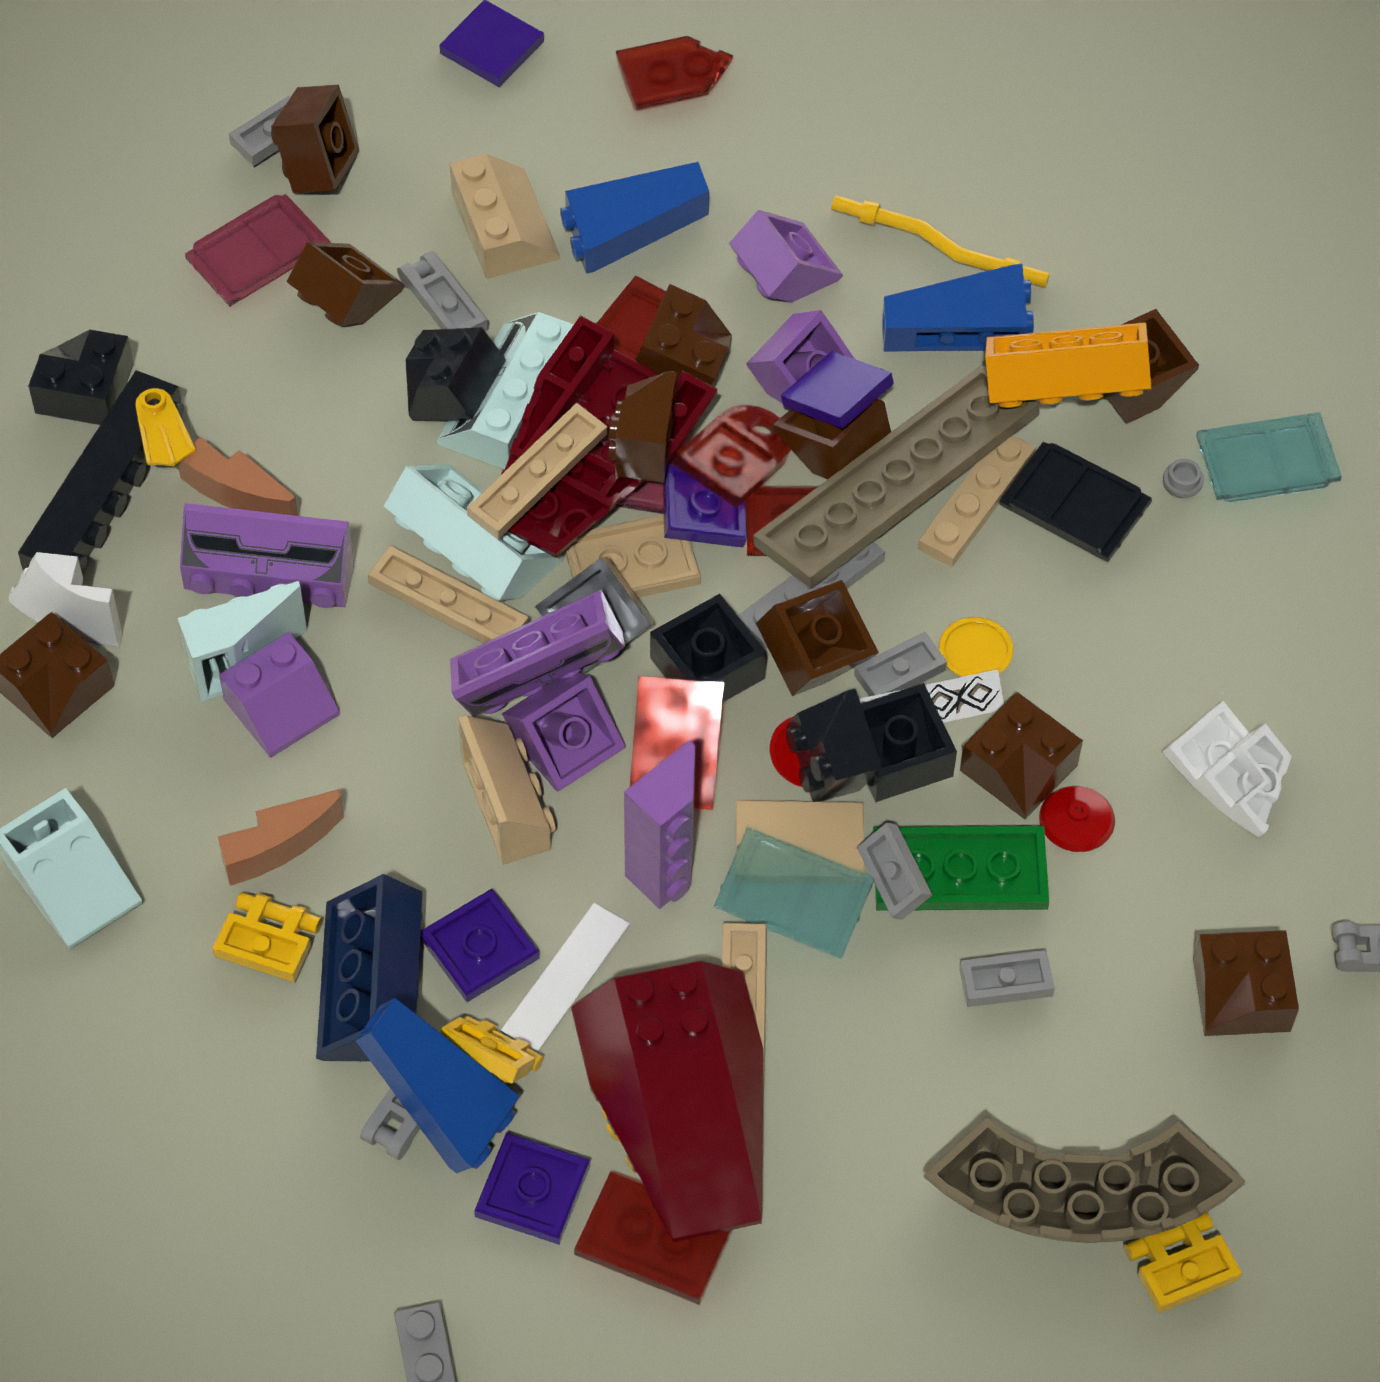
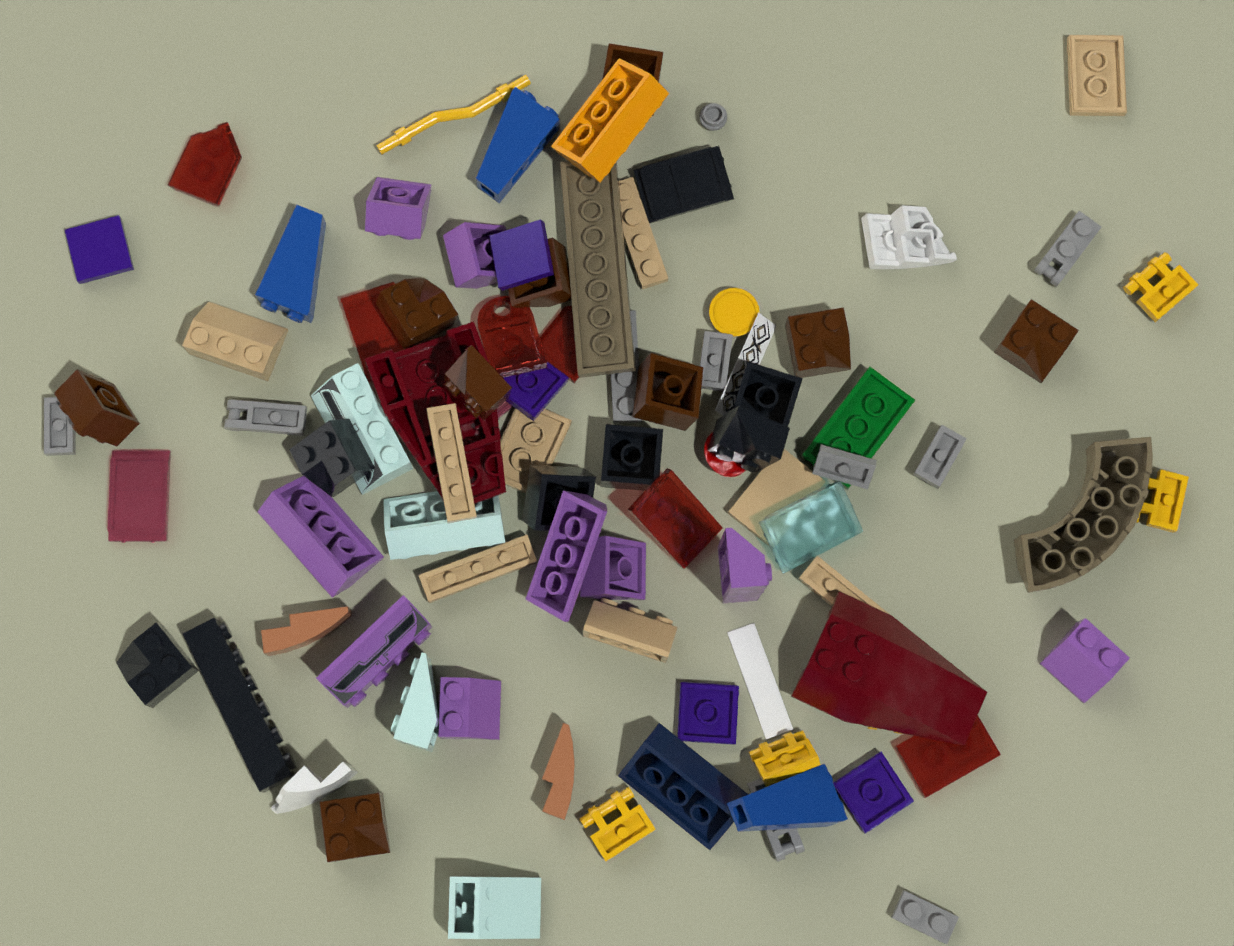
camera: 55 degrees left, 20 degrees up
(162, 429) = (239, 648): yellow piece -> none
(342, 282) = (210, 465): reddish brown slope -> none
(355, 428) = (320, 534): none -> medium lavender slope
(900, 1312) = (1084, 660): none -> medium lavender slope
(1077, 818) = (871, 342): red piece -> none
(1269, 457) = (734, 61): clear light blue piece -> none

